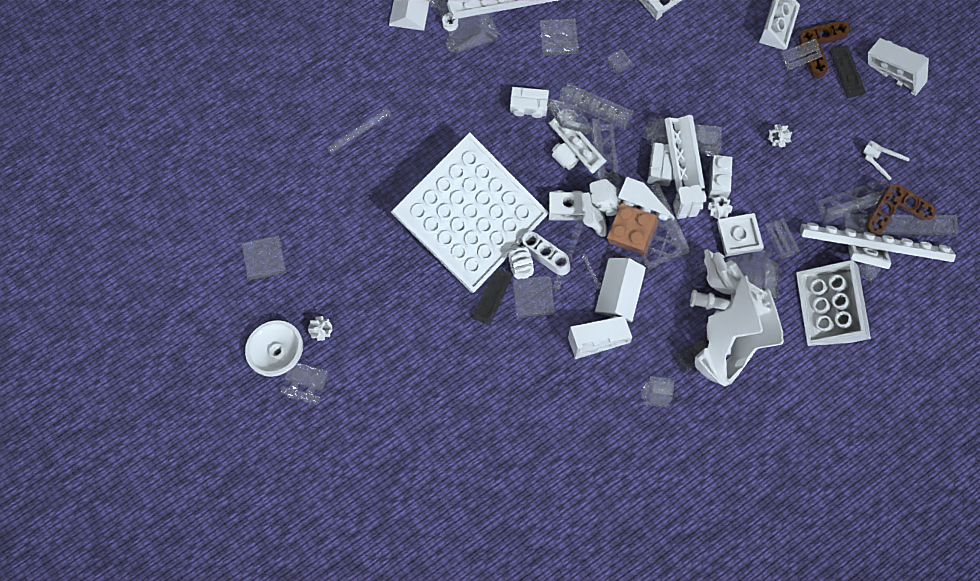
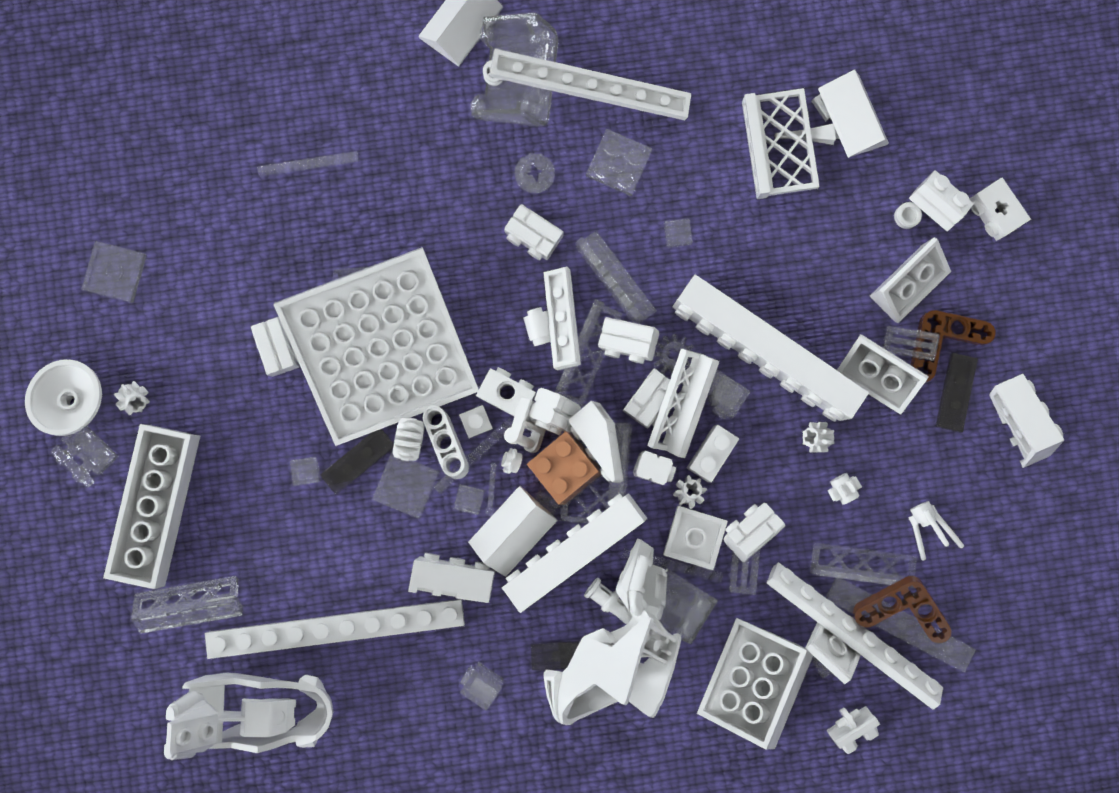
camera: 25 degrees right, 15 degrees up
(371, 389) = (151, 507): none -> white brick
(400, 249) = (274, 347): none -> white brick
(431, 448) = (185, 609): none -> clear fence
(461, 320) = (305, 471): none -> clear tile
(508, 75) = (527, 181): none -> clear gear
(527, 467) = (264, 724): none -> white piece
(536, 412) = (334, 628): none -> white plate
(557, 234) = (475, 421): none -> white plate
(569, 116) = (568, 281): clear tile -> none
(580, 284) = (469, 499): none -> clear tile
(595, 245) = (511, 461): none -> white plate
(627, 133) = (628, 339): none -> white brick
(669, 277) = (573, 553): none -> white brick
(718, 97) = (769, 350): none -> white brick
(775, 210) = (753, 532): none -> white brick
(795, 78) = (882, 374): none -> white slope
(815, 158) = (844, 488): none -> white gear
(909, 299) = (852, 727): none -> white hips

